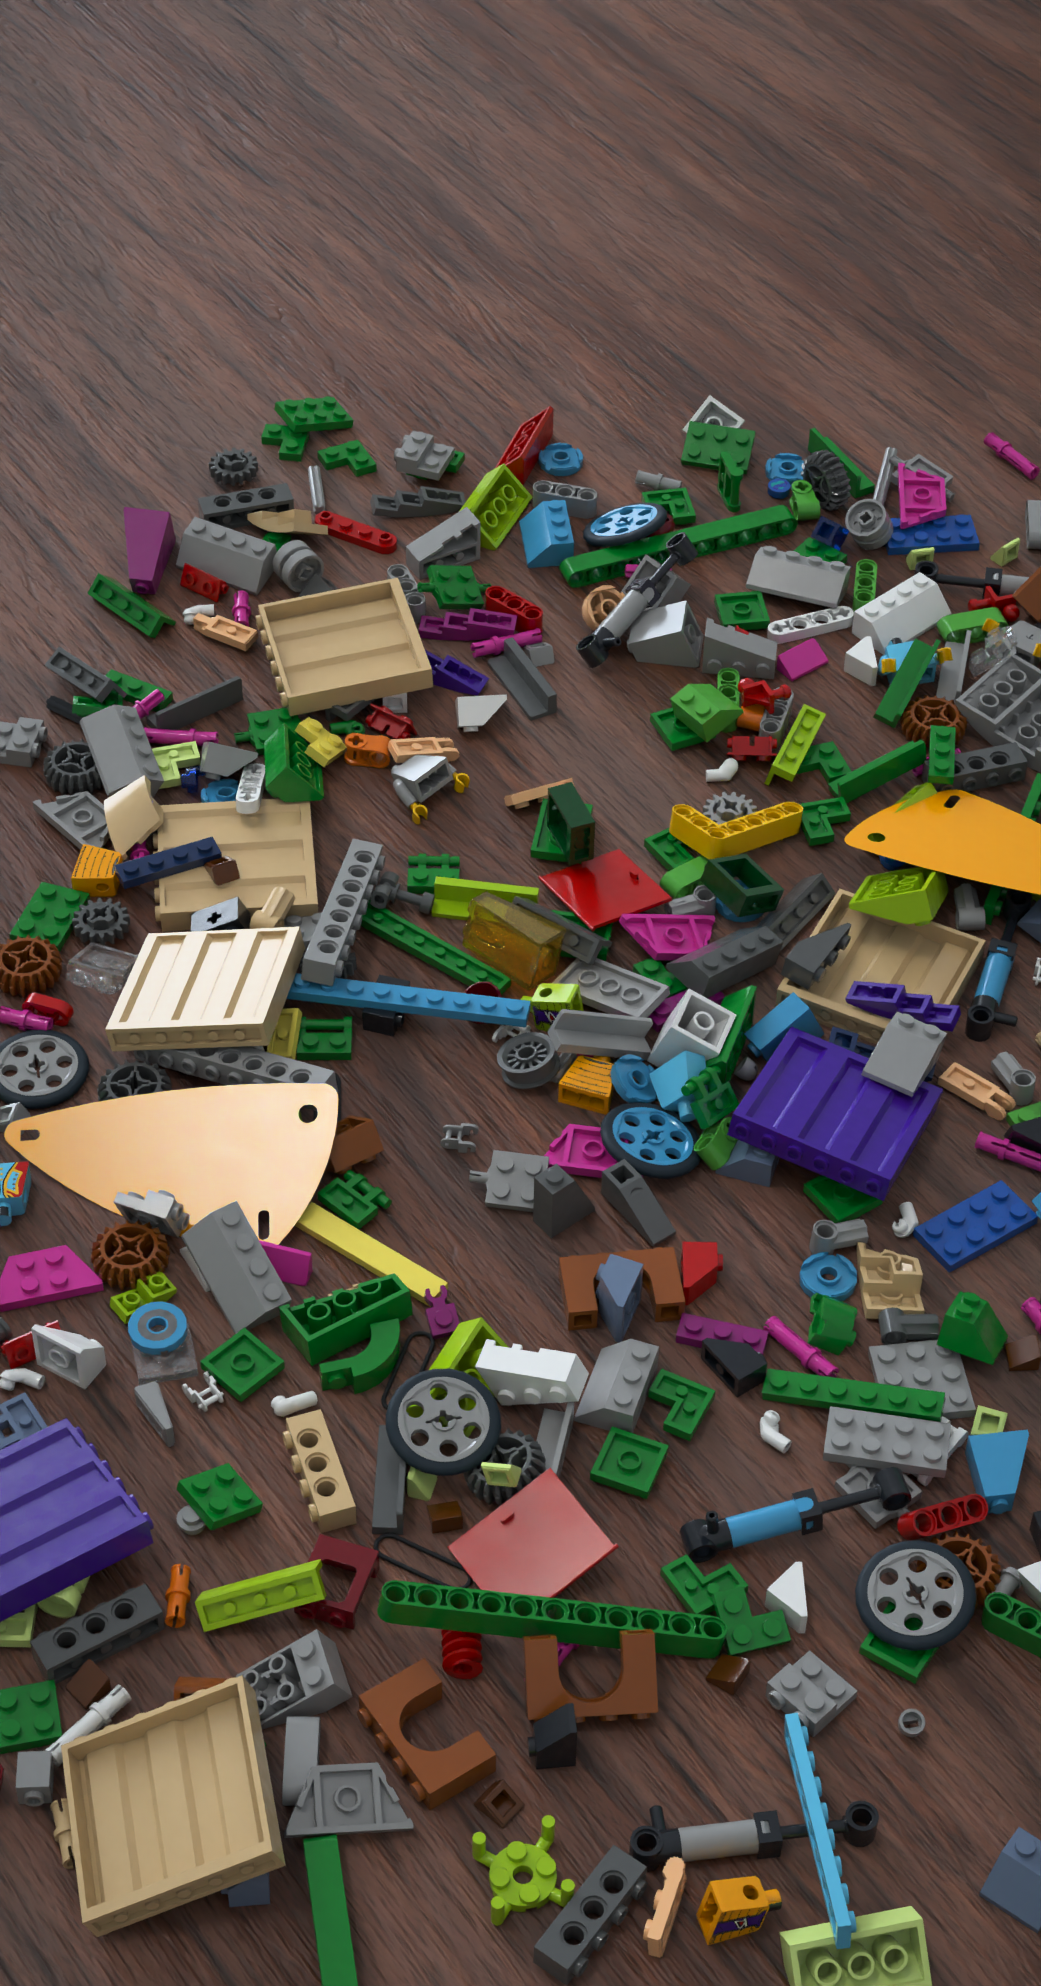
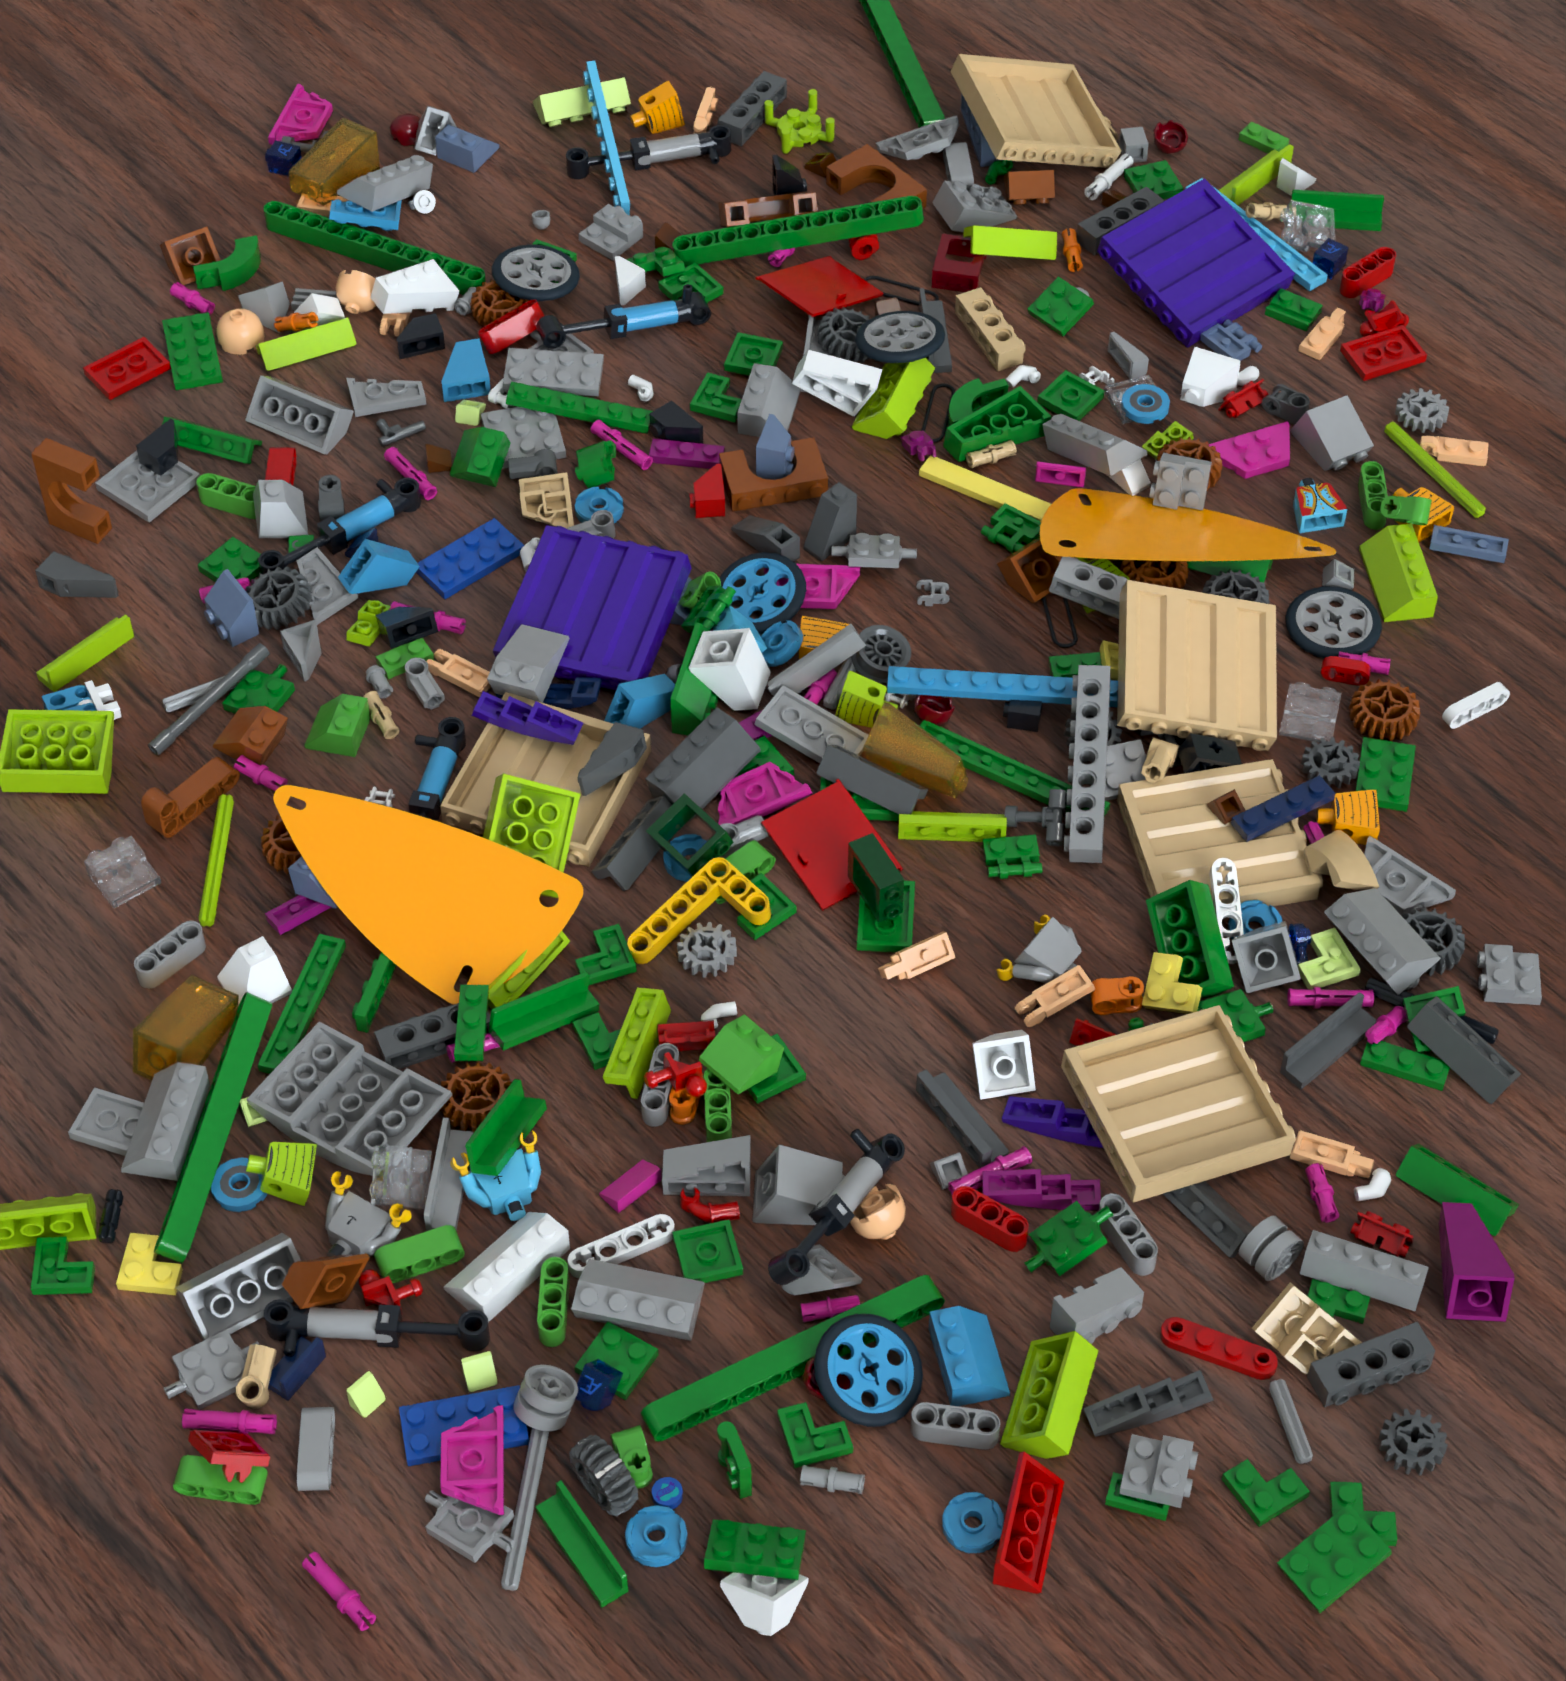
camera: 175 degrees right, 5 degrees up
(501, 1474) = (849, 305): yellowish green slope -> none
(861, 661) = (560, 1182): white slope -> none

